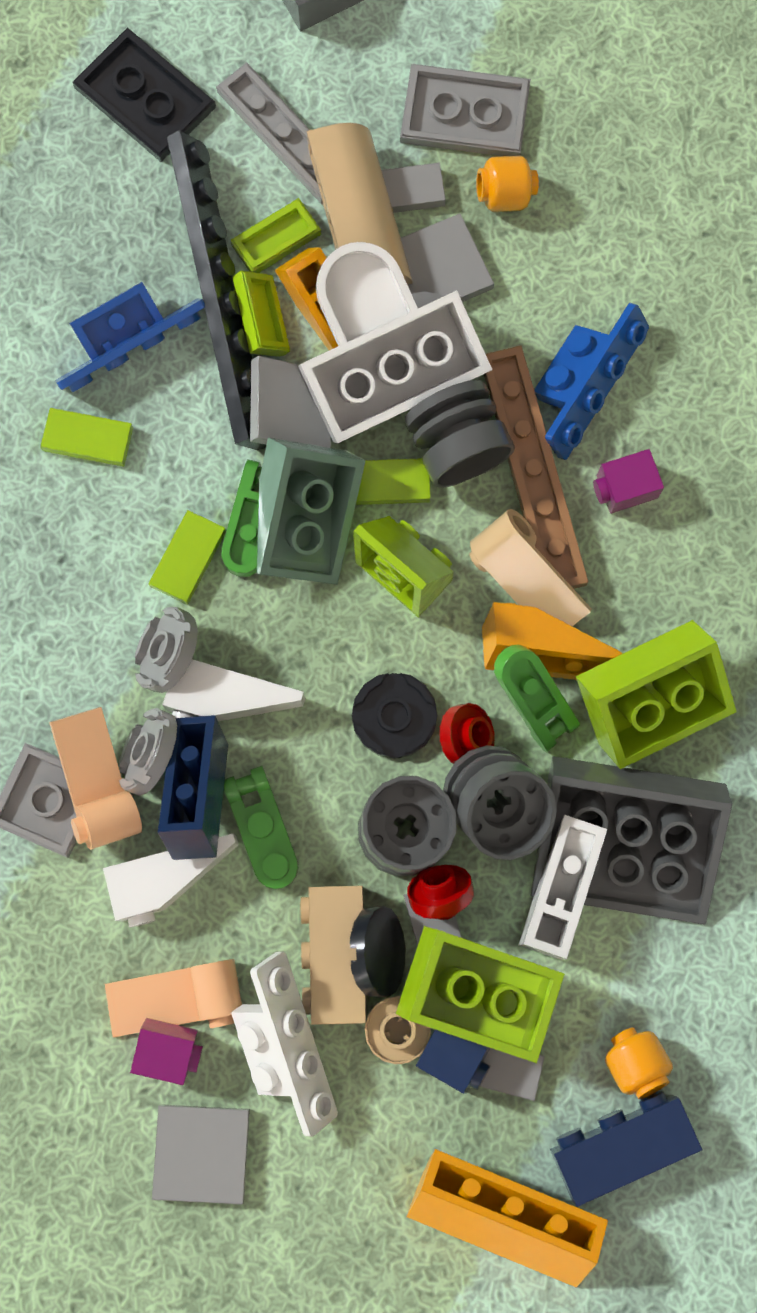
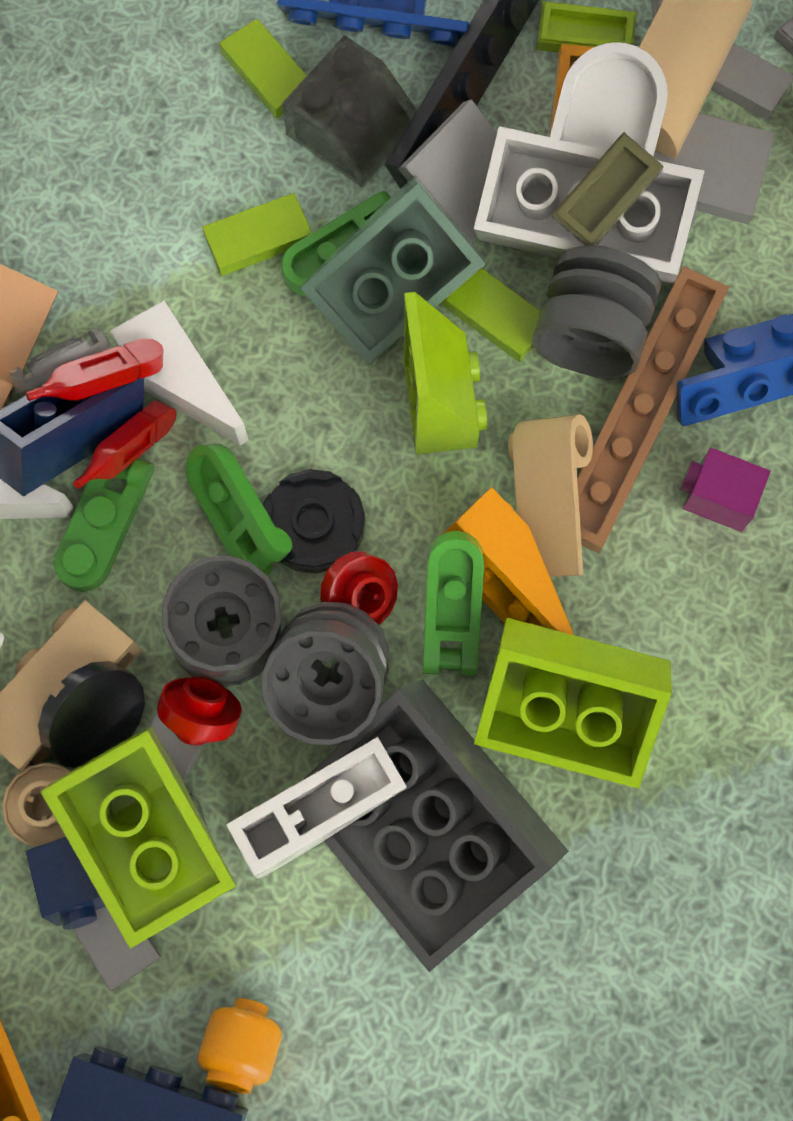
camera: 40 degrees right, 5 degrees down
(166, 649) = (159, 288): light grey tile -> none
(176, 424) = (349, 111): none -> clear smoke slope
(192, 735) = (102, 371): none -> piece
(240, 765) = (129, 442): none -> red piece
(261, 314) = (513, 79): lime tile -> none
(343, 750) = (235, 507): none -> bright green plate
(407, 352) = (607, 191): none -> olive tile

